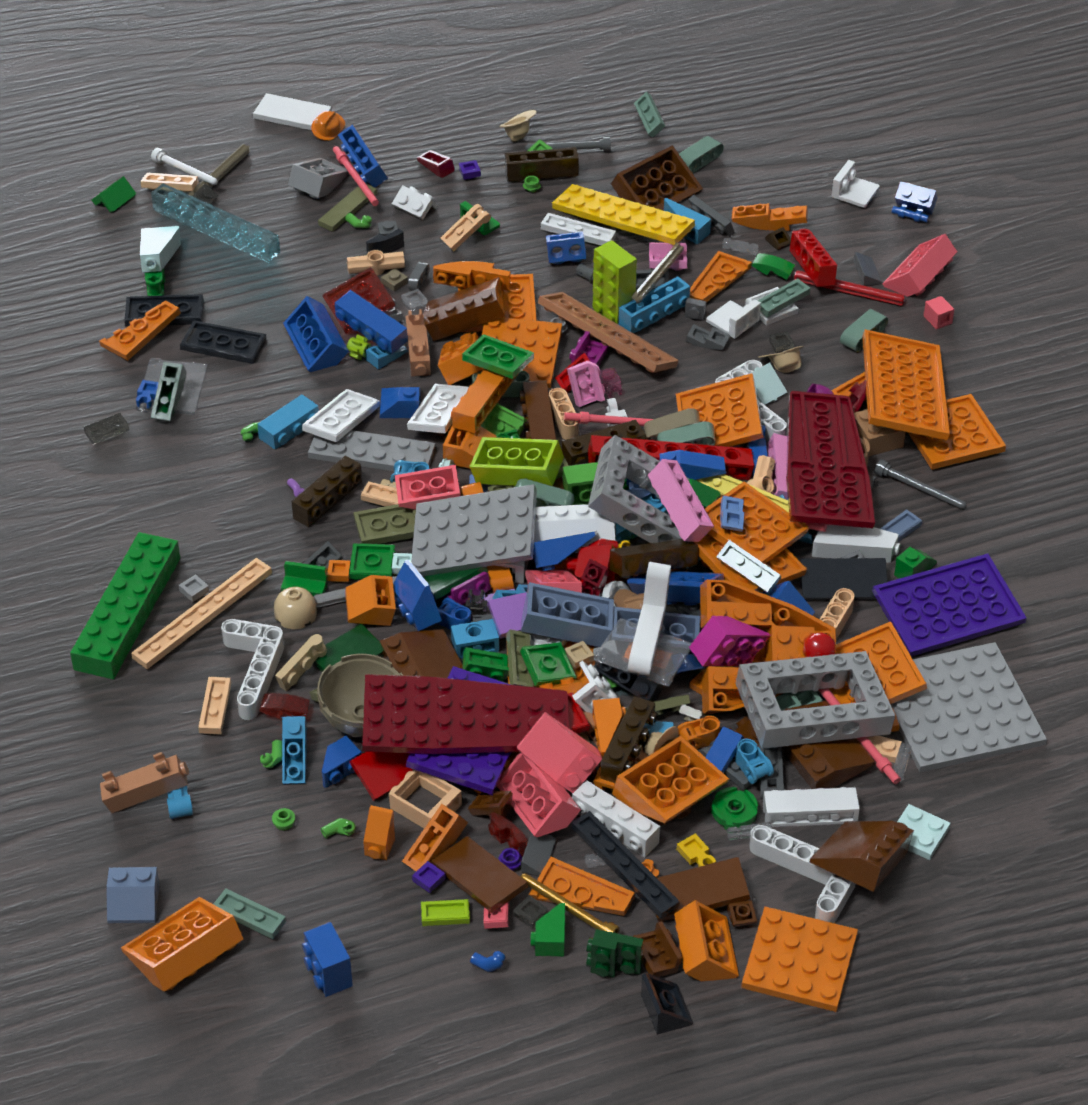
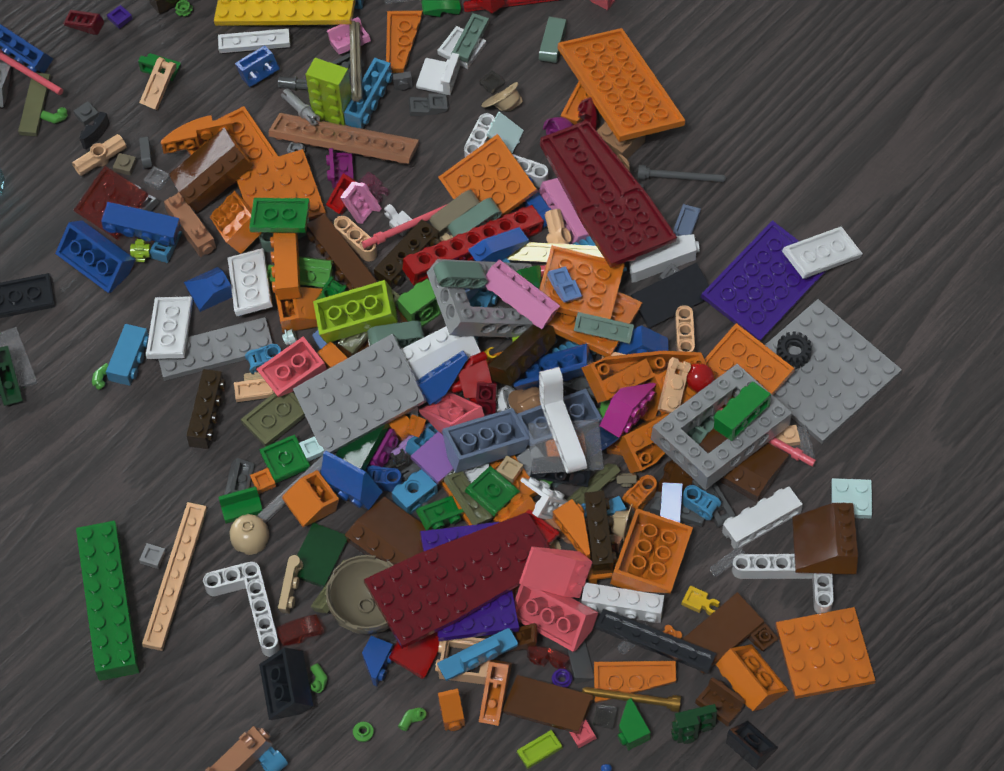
camera: 25 degrees left, 15 degrees up
(214, 705) = (242, 657): light nougat plate -> none
(240, 744) = (286, 684): none -> black slope
(294, 749) = (334, 667): dark azure slope -> none
(295, 486) = (174, 416): medium lavender piece -> none
(413, 202) = (91, 75): white bracket -> none
(428, 877) = (509, 726): dark purple plate -> none
(436, 793) = (477, 654): none -> dark azure bracket
(512, 580) = (415, 426): none -> orange plate
(585, 296) = (303, 110): none -> light grey pin
(626, 453) = (460, 274): none -> sand green beam
(734, 818) = (705, 557): green plate -> none
(787, 640) = (673, 385): none -> light nougat plate
(839, 686) = (741, 411): none -> green brick
(913, 562) = (717, 255): green slope -> none
(943, 663) = (794, 340): none -> black tyre
(969, 436) = (696, 106): orange plate -> none
(1024, 602) = (822, 252): none -> white tile

